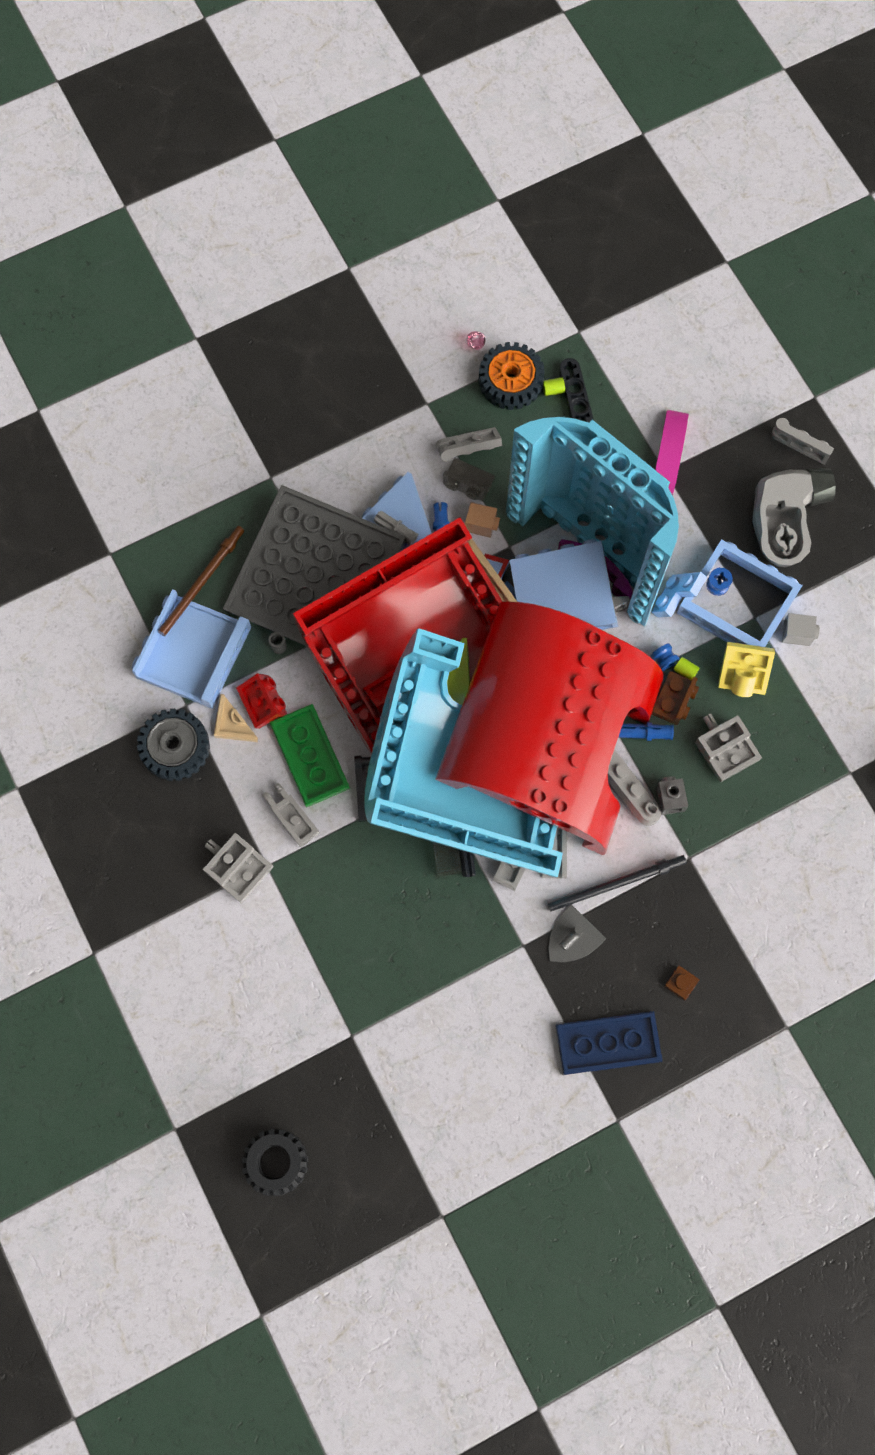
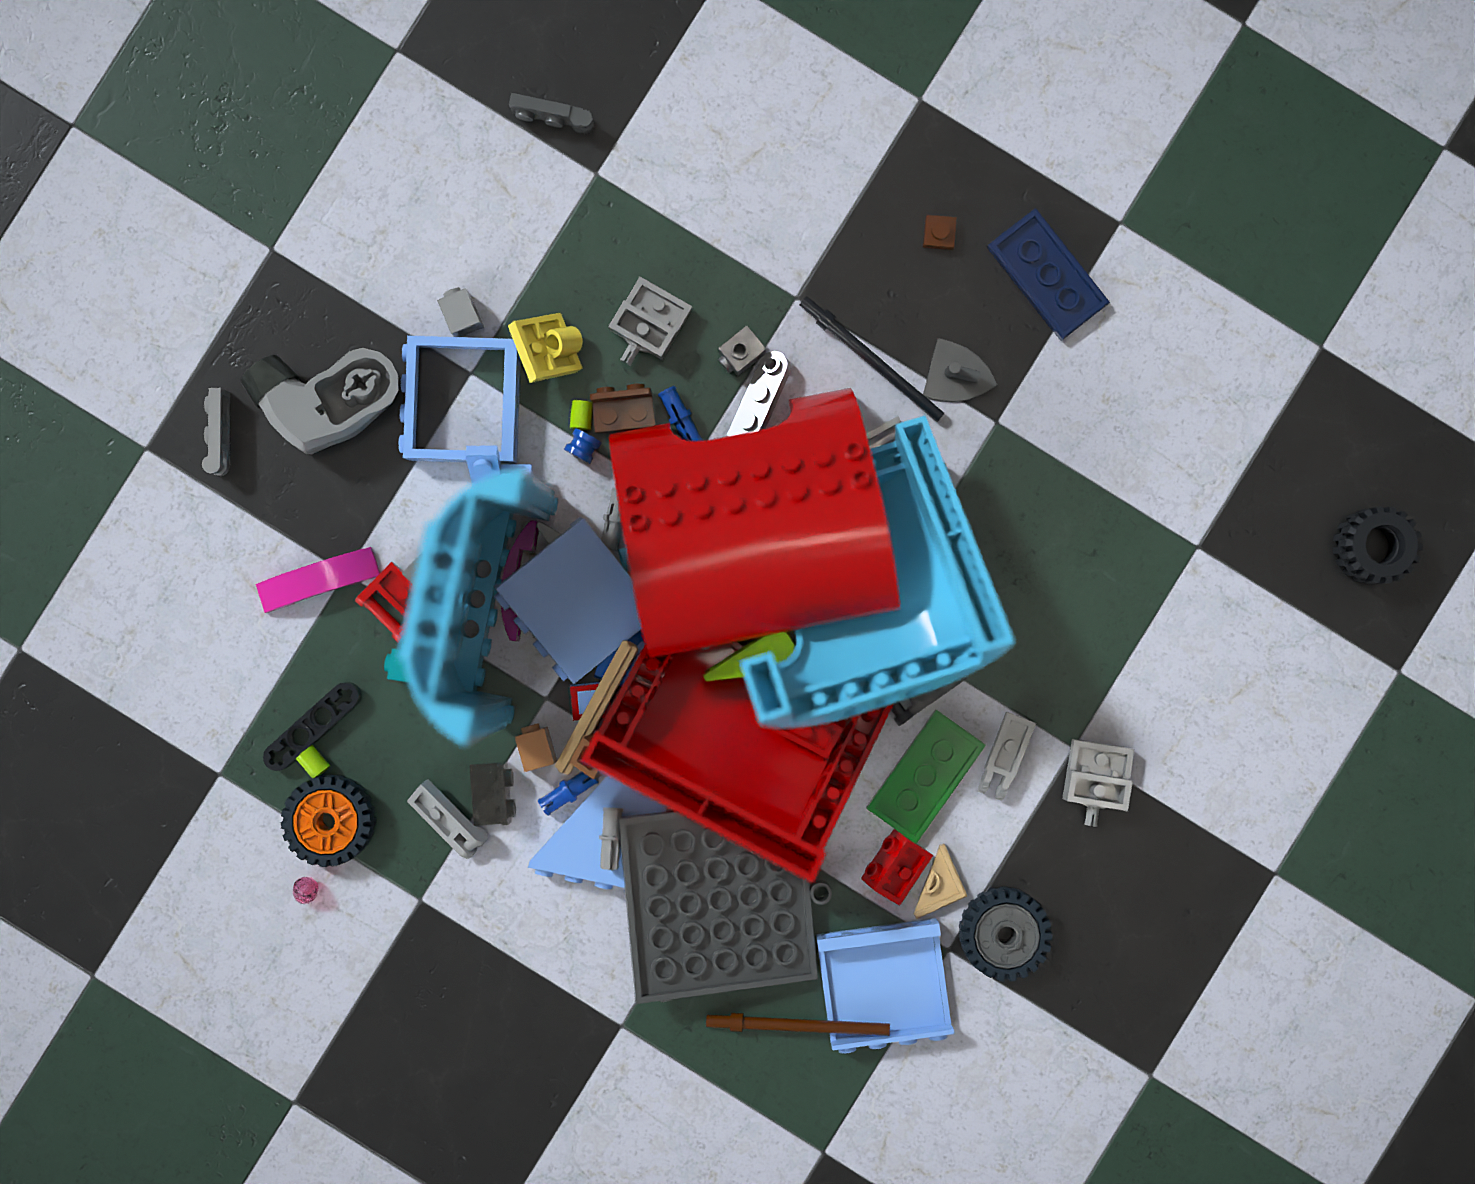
camera: 120 degrees left, 15 degrees up
(716, 586) = (461, 436): blue wheel -> none

